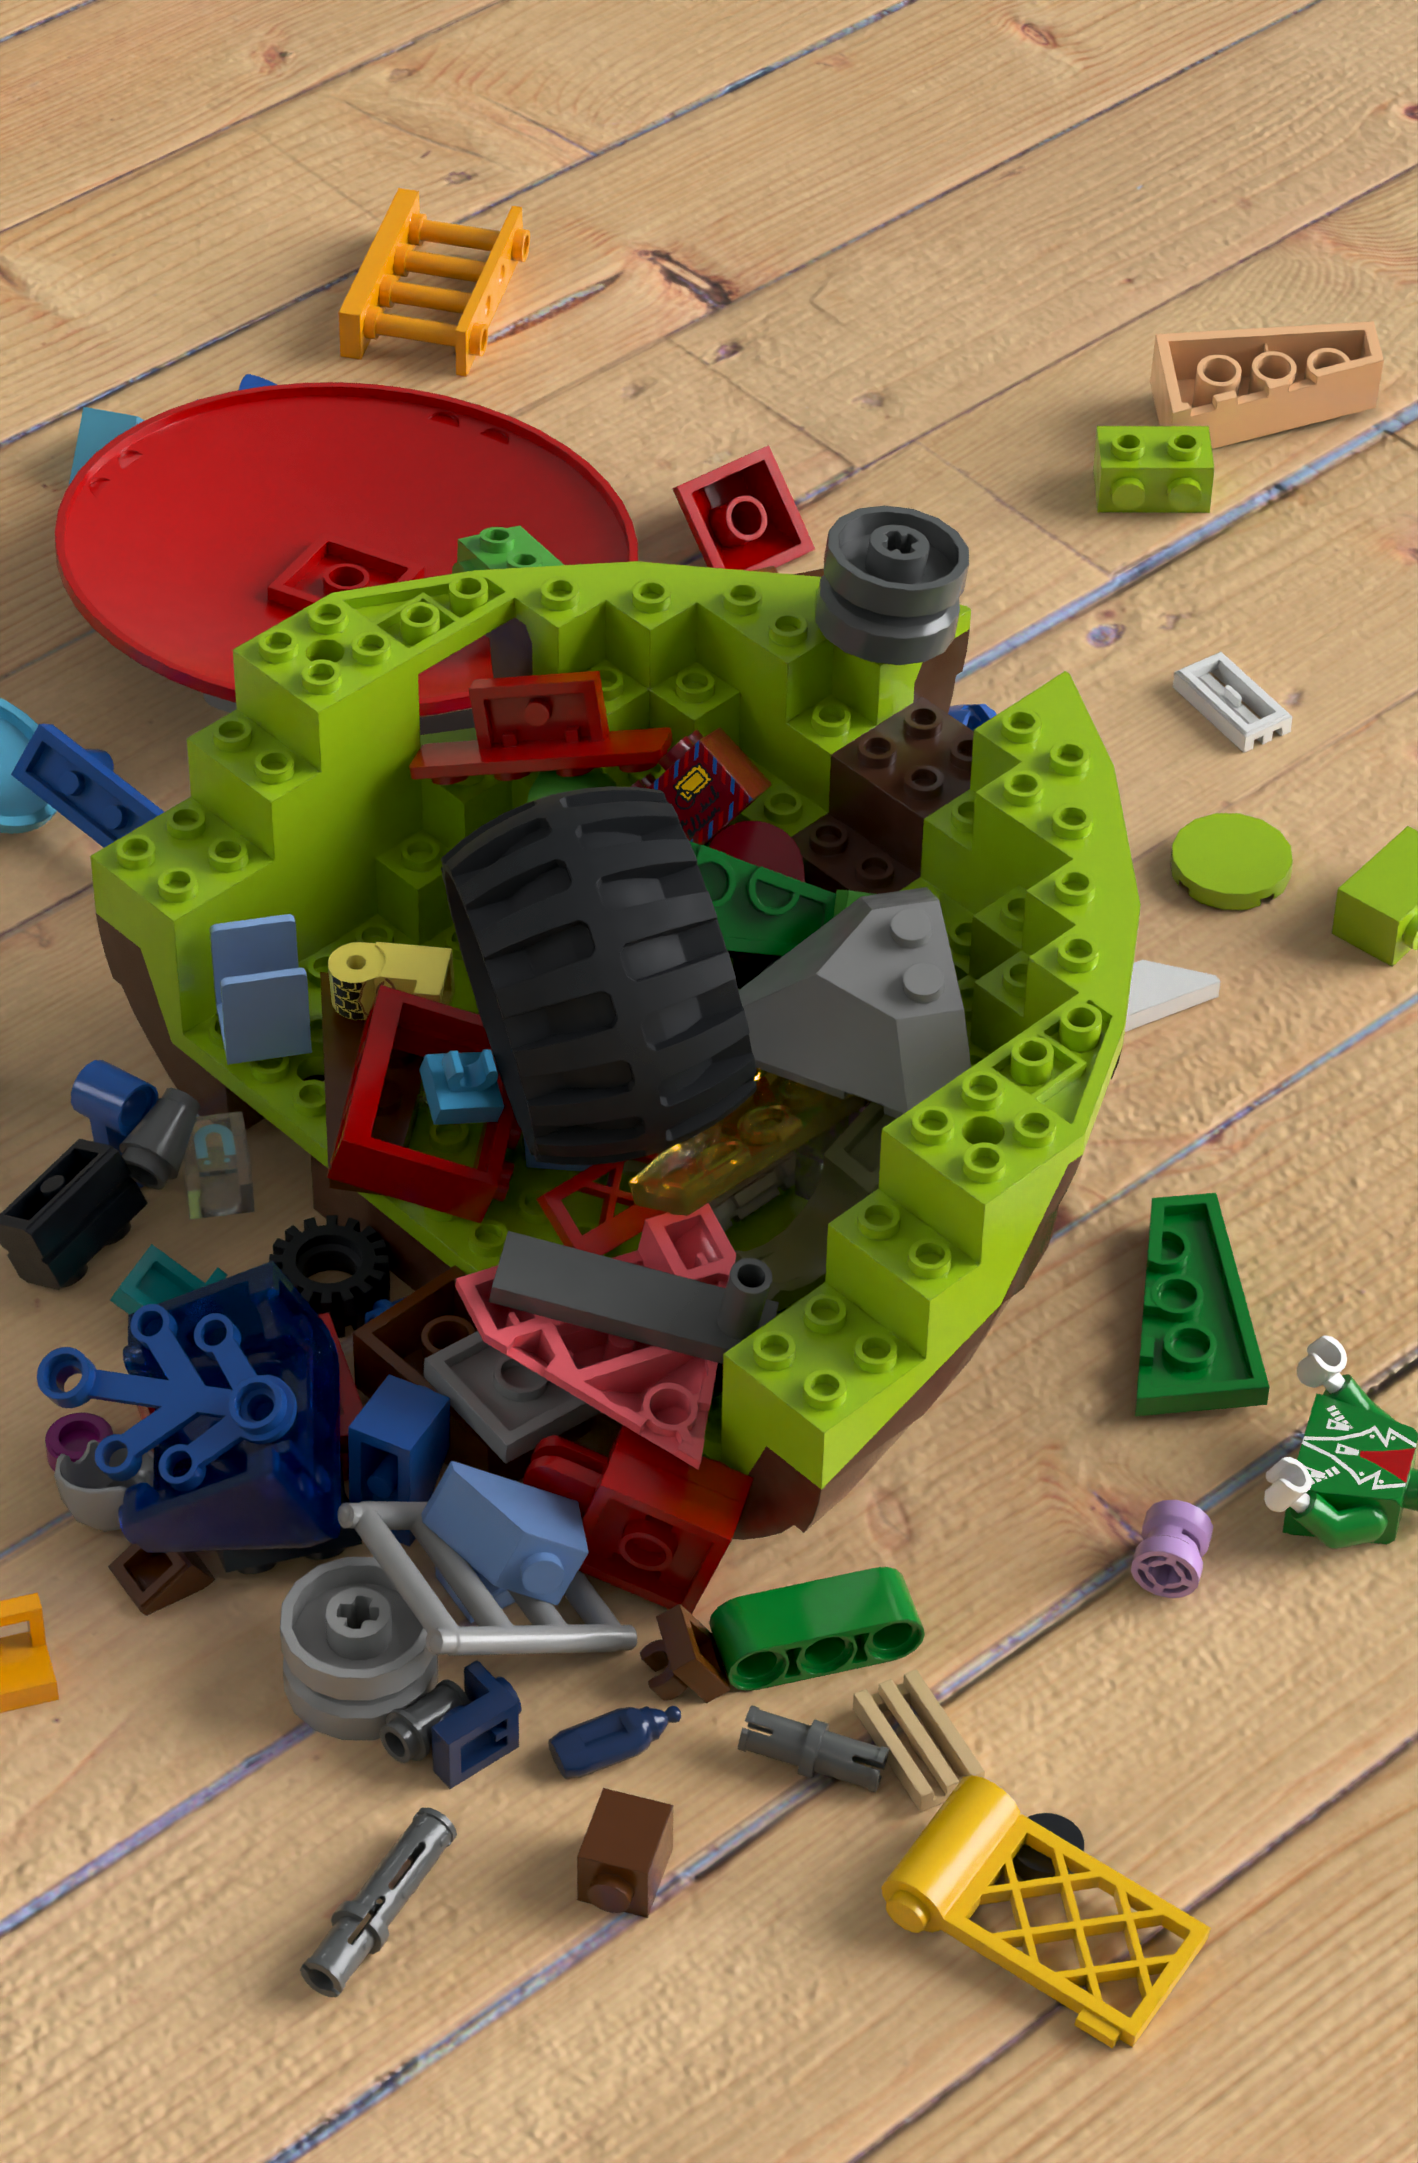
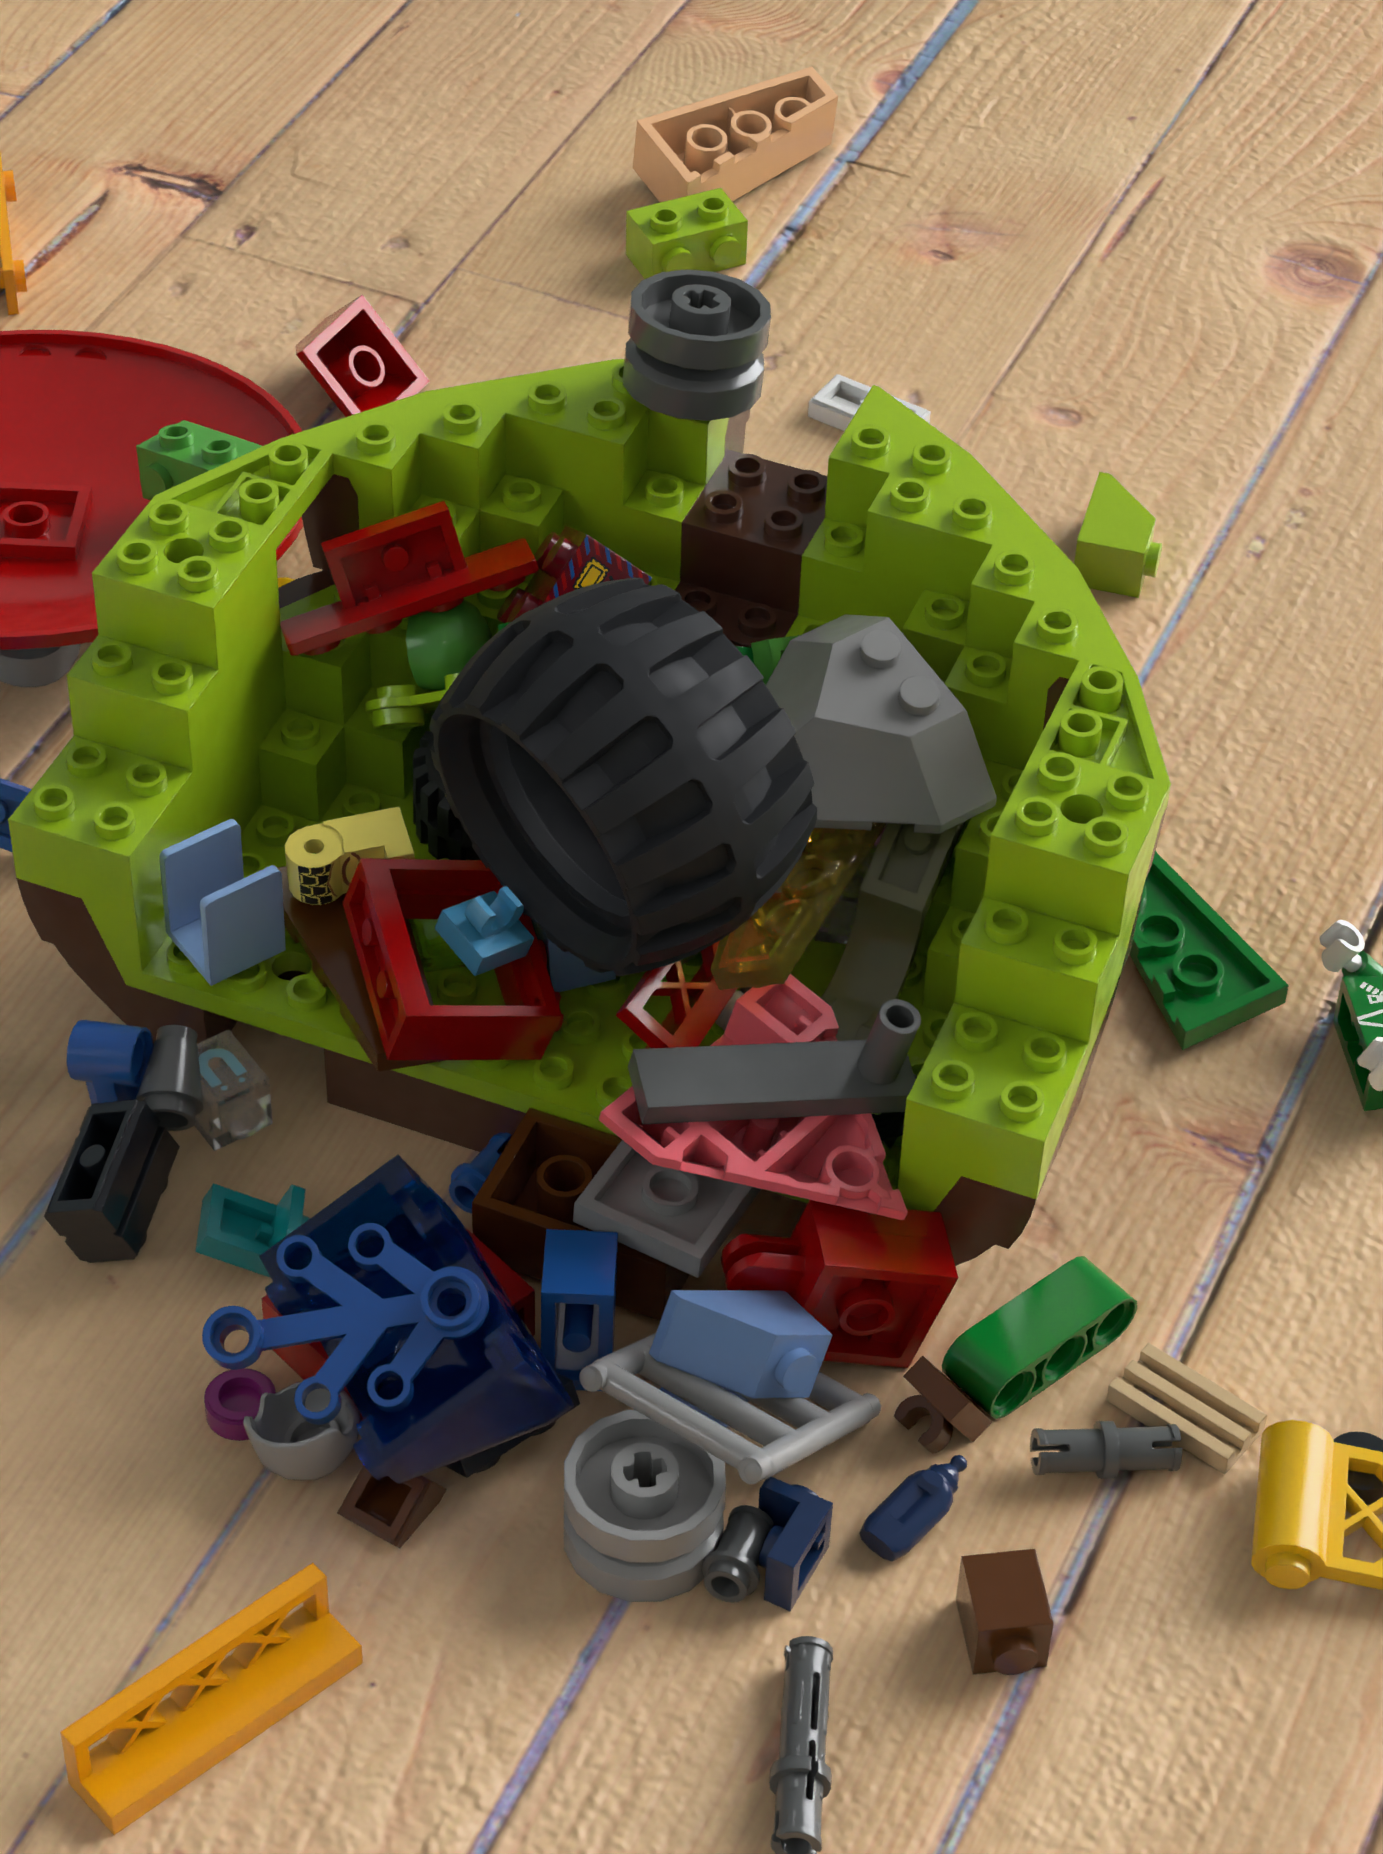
camera: 25 degrees left, 0 degrees up
(336, 1249) = (391, 1131): black tyre -> none
(1166, 1558) = (1298, 1155): lavender wheel -> none

